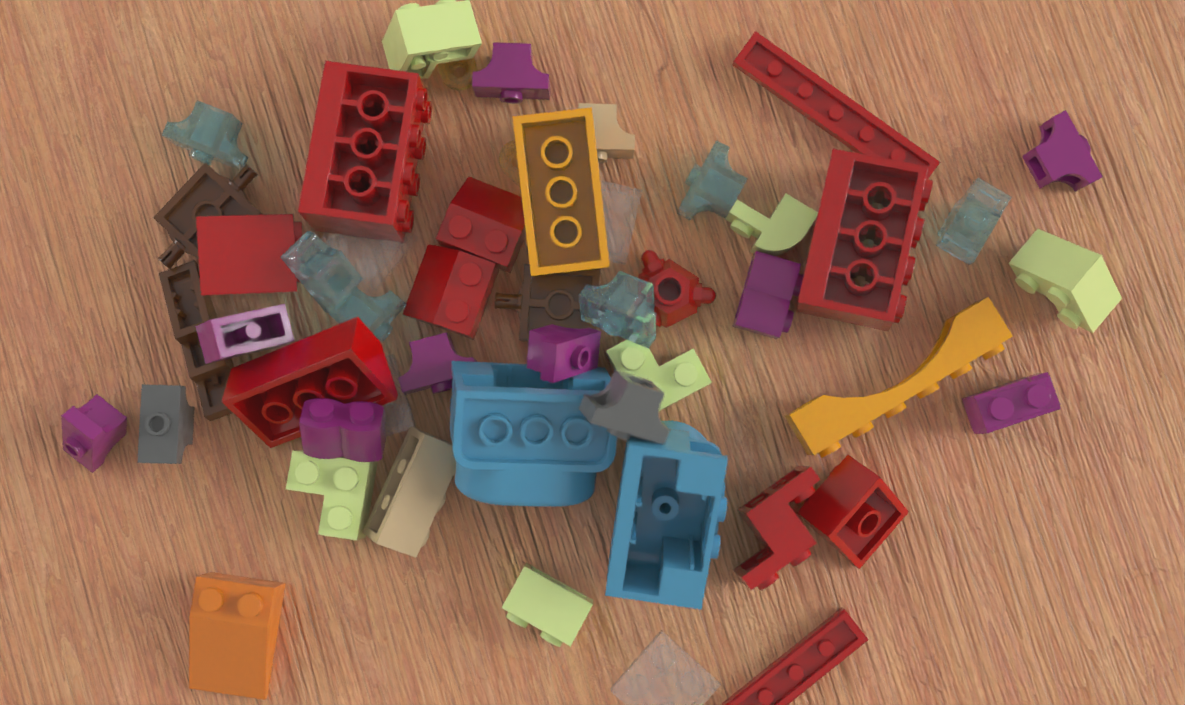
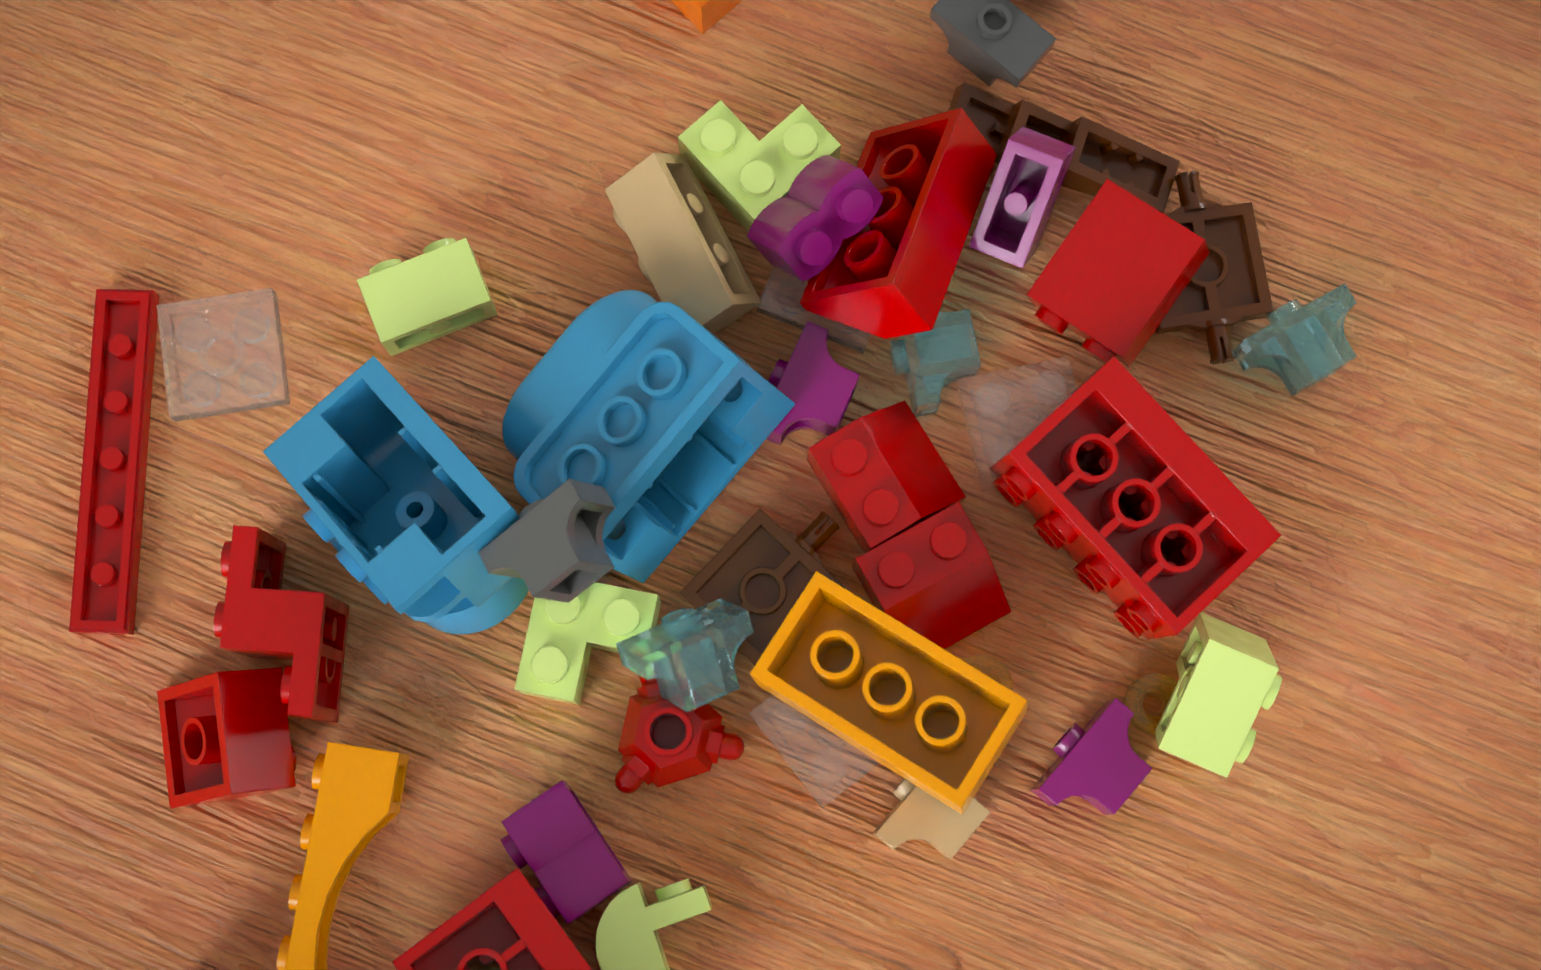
camera: 125 degrees right, 5 degrees down
(321, 270) = (1028, 339): clear light blue brick -> none
(562, 351) = (698, 541): magenta brick -> none
(712, 186) = (756, 899): clear light blue brick -> none

